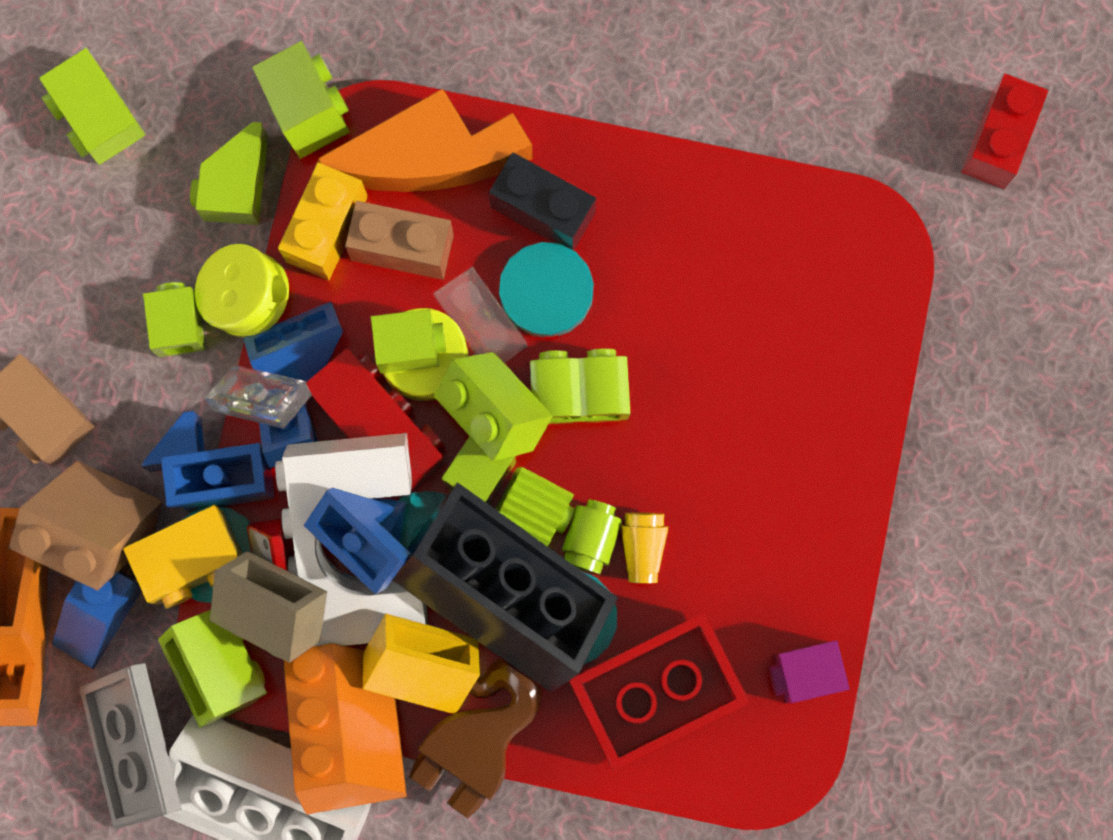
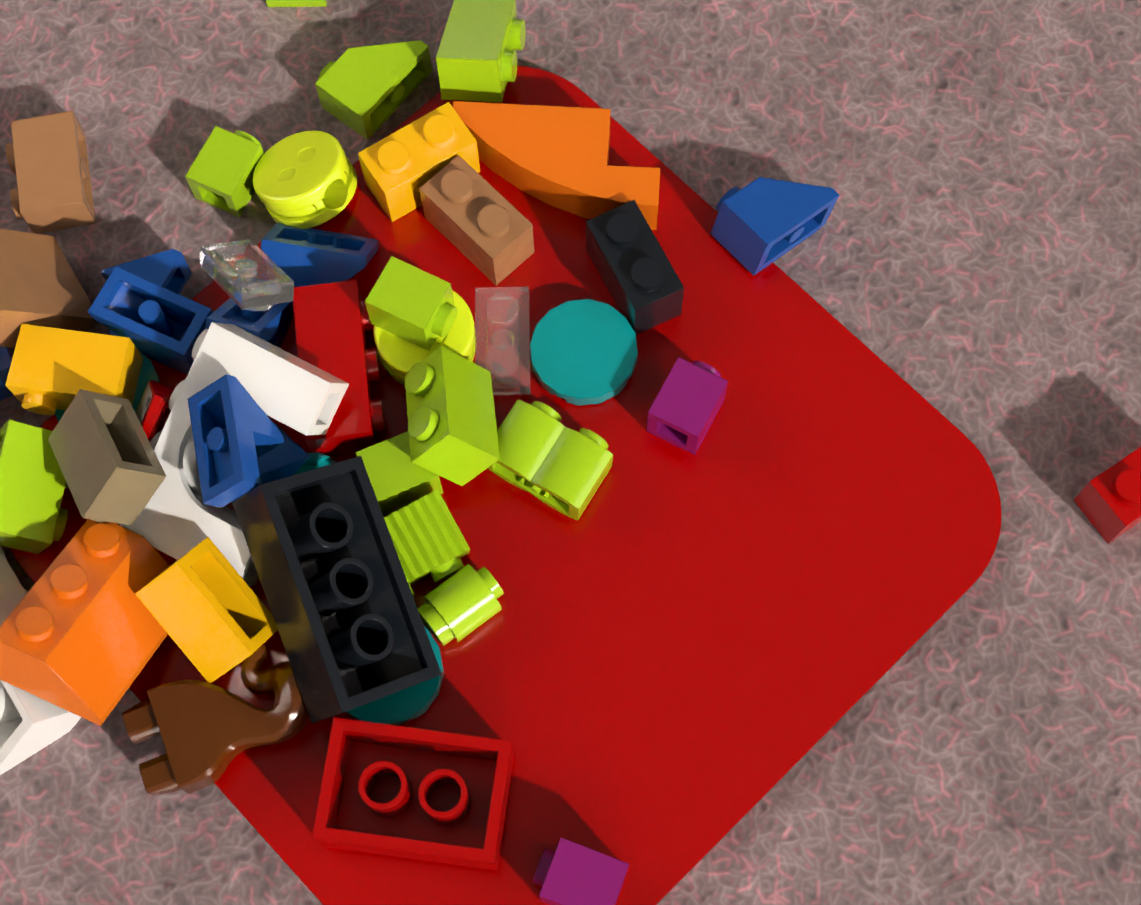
camera: 35 degrees right, 10 degrees down
(613, 99) = (770, 219): none -> blue slope
(643, 545) = (506, 647): yellow cone -> none
(652, 282) = (687, 404): none -> magenta brick

